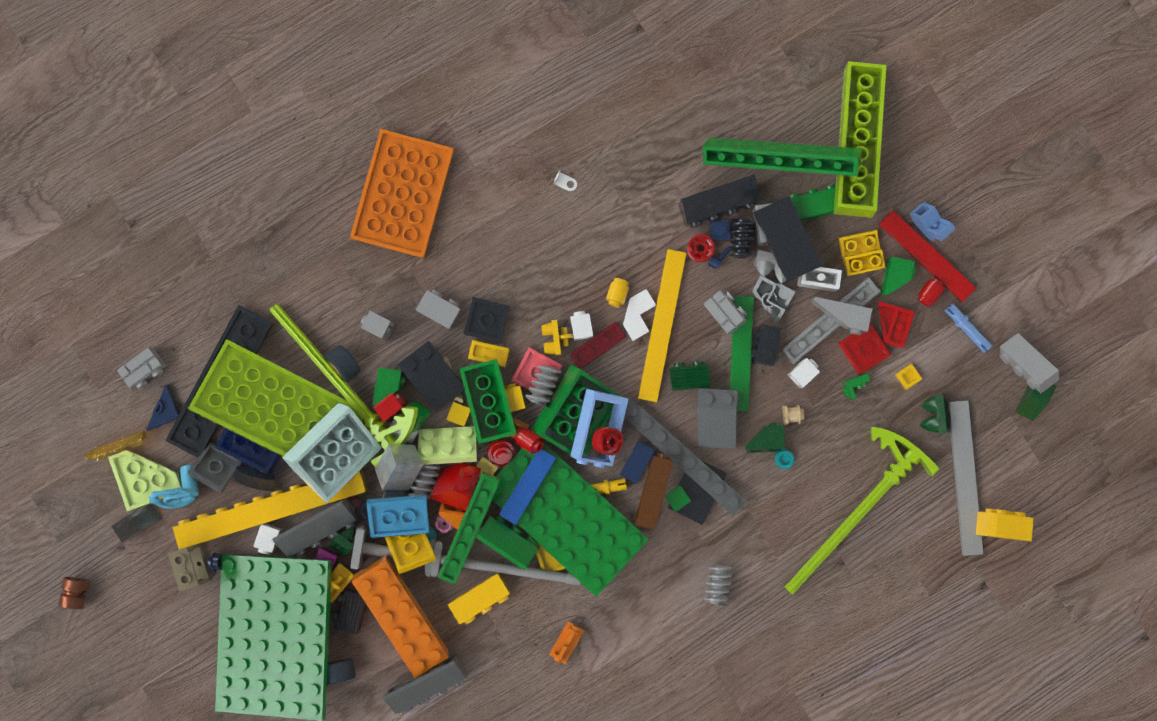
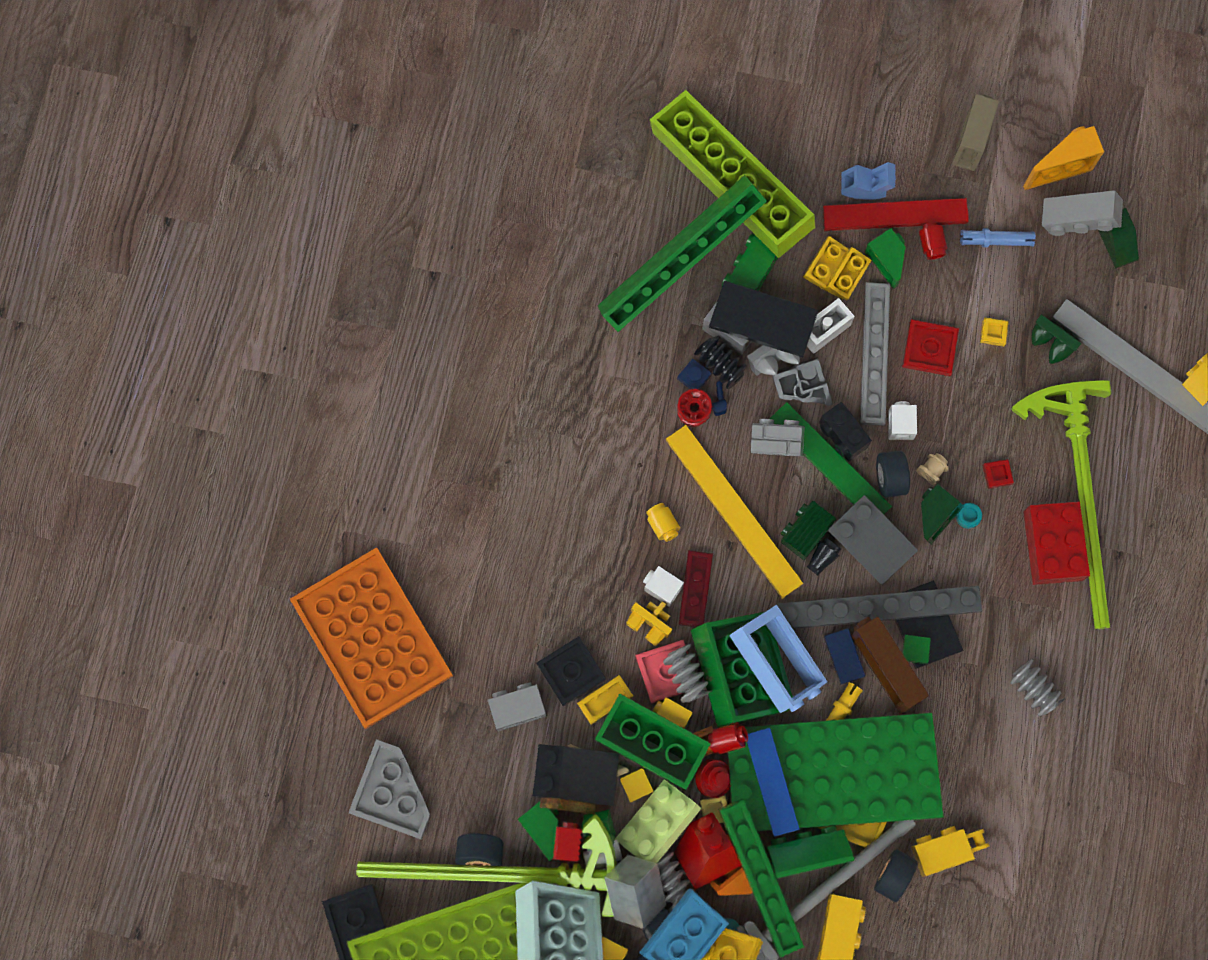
camera: 40 degrees left, 10 degrees down
(329, 286) = (390, 793): none -> light grey plate
(377, 325) = (475, 780): light grey brick -> none
(409, 387) = (567, 805): none -> clear orange tile
(443, 528) = (729, 909): bright pink plate -> none
(540, 599) = (896, 875): none -> black wheel
(562, 179) = (506, 477): white piece -> none
(566, 642) = (961, 892): orange hinge -> none
(581, 614) = (946, 850): none -> yellow brick
(601, 438) = (800, 660): red wheel -> none
(633, 322) = (704, 534): white tile -> none
(682, 399) = (824, 555): none -> black cone
(719, 201) = (666, 349): black slope -> none
(766, 395) = (893, 473): none -> black wheel
(813, 522) = (1056, 543): none -> red brick
(824, 453) = (998, 474): none -> red tile
(846, 315) = (884, 333): light grey slope -> none
(856, 382) = (958, 381): green bracket -> none
(894, 324) = (932, 299): red wing -> none
(1022, 256) = (975, 132): none -> dark tan window
(1060, 326) = (1071, 157): none -> light orange slope

